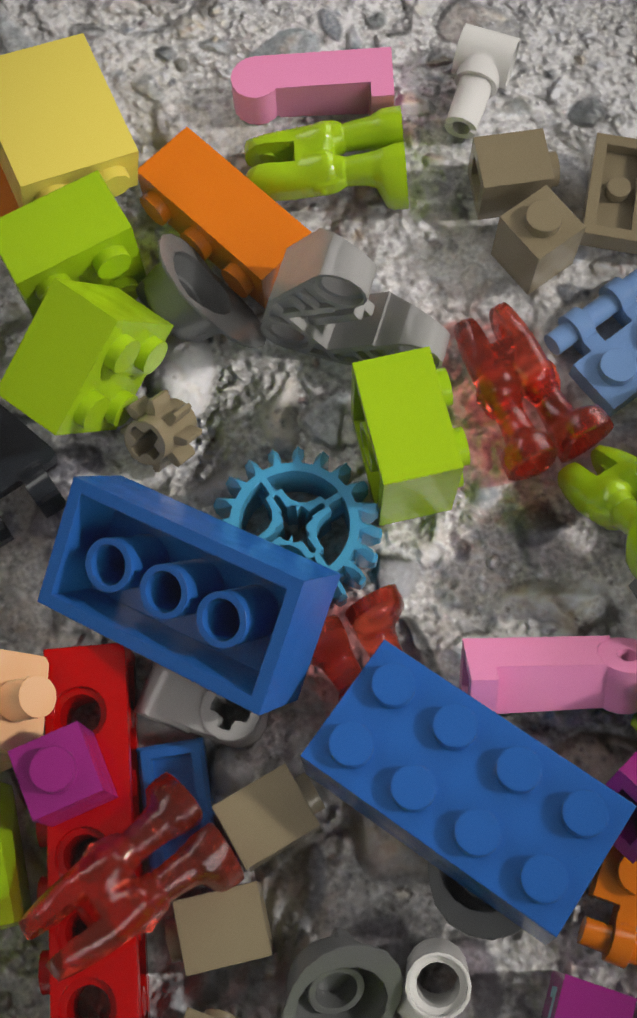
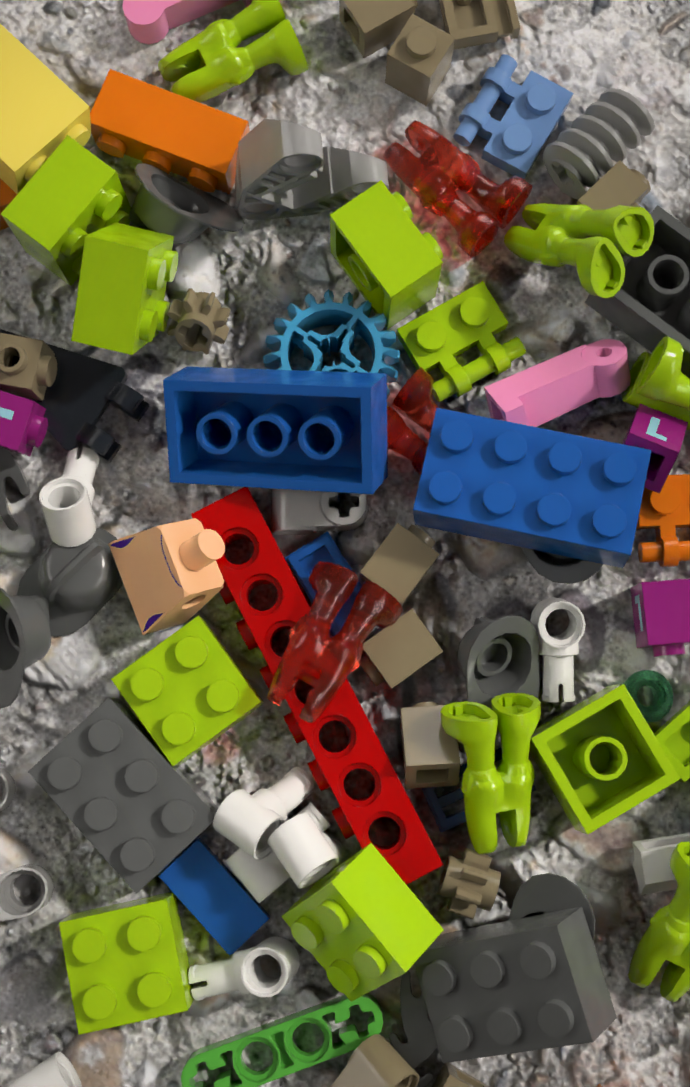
camera: 25 degrees left, 10 degrees up
(62, 774) = (252, 589): magenta brick -> none
(457, 556) = (453, 329): none -> lime plate

